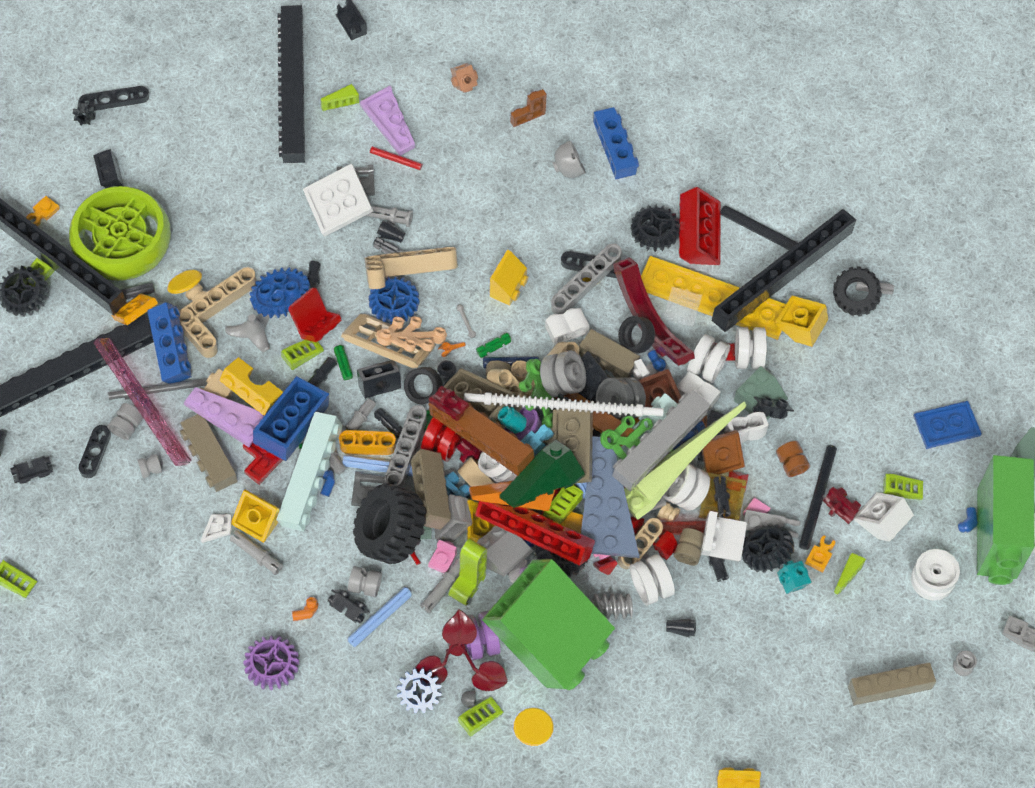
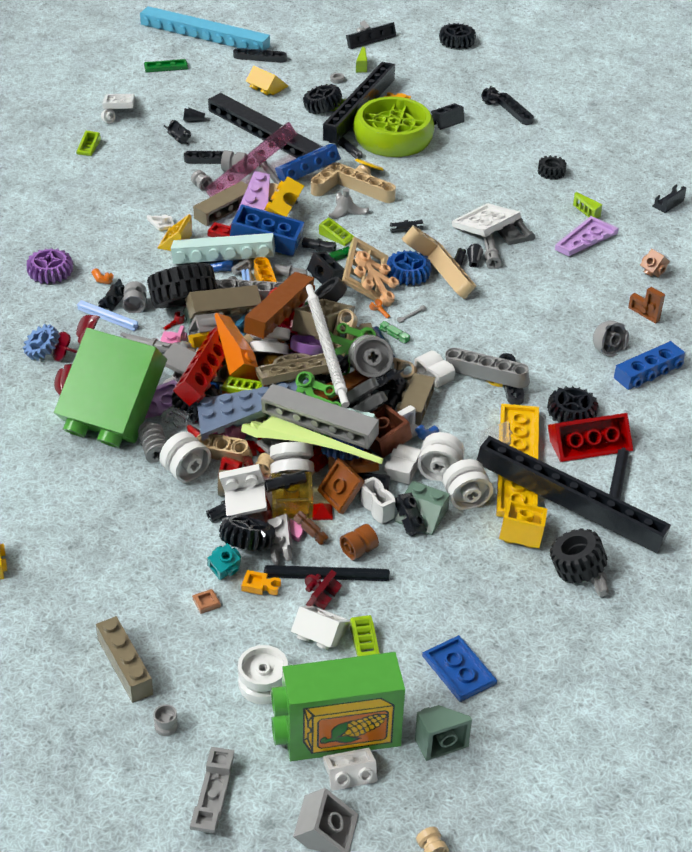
camera: 75 degrees right, 20 degrees down
(134, 309) = (324, 141): light orange tile -> none
(255, 113) = (552, 167): none -> black tyre
(263, 557) = (142, 246): light grey pin -> none
(278, 291) = (382, 208): blue gear -> none
(292, 85) = (584, 181): black brick -> none
(312, 317) = (367, 223): red bracket -> none
(396, 158) = (551, 248): bar -> none
(446, 370) = (349, 298): black cone -> none
(448, 402) = (292, 271): dark red hips -> none
(469, 698) = (45, 375): dark grey hinge -> none
(471, 730) = (20, 376): lime slope -> none
(472, 571) = (158, 327): lime beam -> none
(508, 279) = (461, 319): yellow slope -> none
(512, 419) = (303, 325): teal brick -> none
(533, 726) = (27, 421): yellow piece -> none
(536, 439) = (291, 347): medium azure plate -> none
(548, 471) = (259, 350): dark green wedge -> none
(640, 305) = (477, 411): dark red arch -> none
(647, 338) = (444, 407): black tyre -> none
(683, 627) = (148, 497): black cone -> none
(764, 494) = (311, 528): none -> reddish brown axle
(829, 604) = (206, 601): none -> nougat tile
(852, 567) = (244, 606): lime slope -> none

